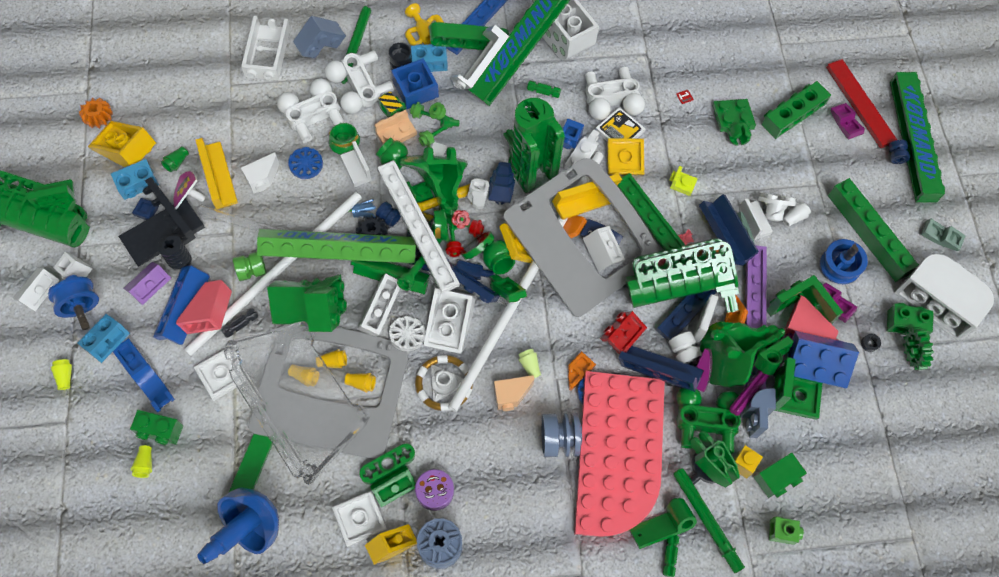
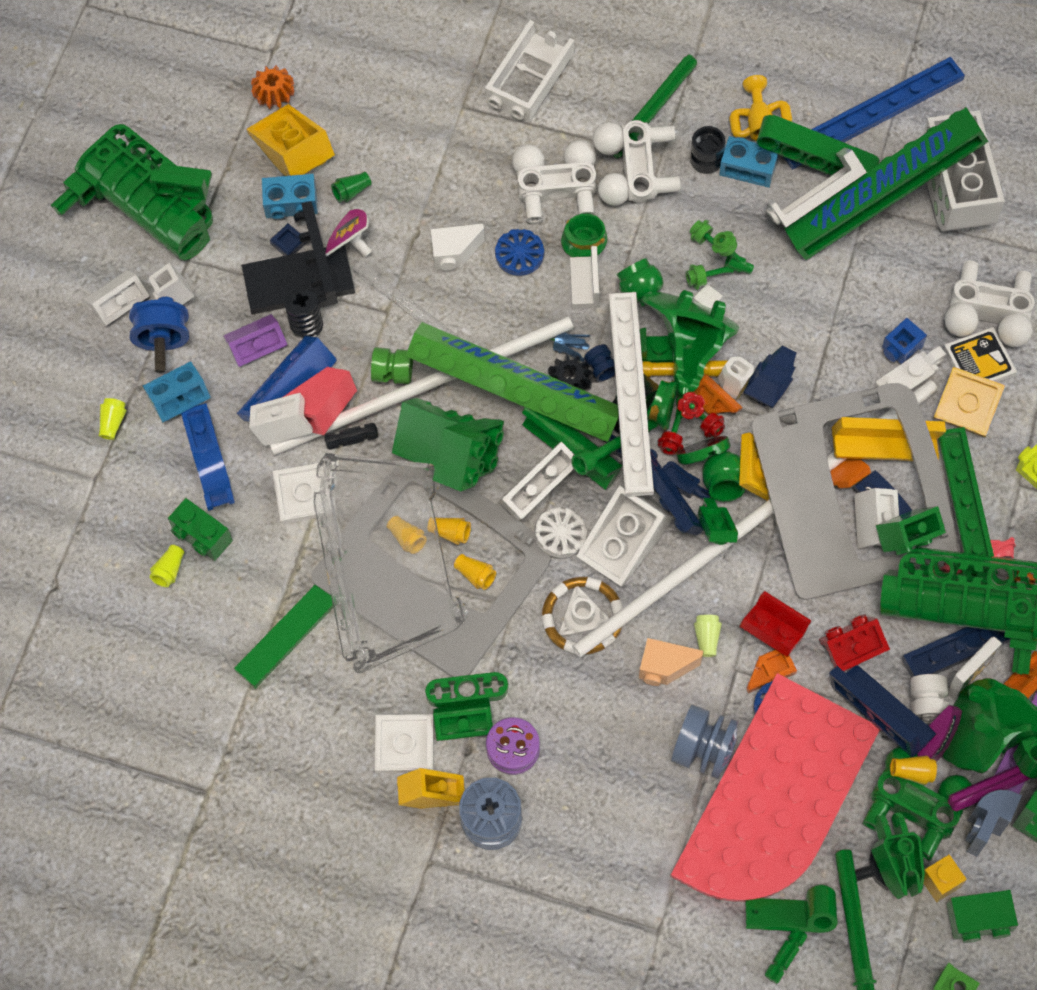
camera: 30 degrees right, 0 degrees up
(185, 330) = (279, 419): none -> white panel
(216, 174) = (397, 225): yellow panel -> none
(247, 520) = (266, 686): blue piece -> none
(317, 34) = (606, 76): sand blue brick -> none
(391, 104) = (668, 214): brick -> none
(396, 127) = (661, 246): light nougat bracket -> none
(415, 83) = (713, 192): blue brick -> none
(475, 211) = (715, 397): none -> orange tile
(534, 142) = (835, 336): green piece -> none
(543, 89) = (895, 262): green axle -> none
(570, 339) = (776, 624): none -> red bracket
(629, 247) = (910, 529): none -> green brick
(702, 398) = (916, 769): none -> yellow cone

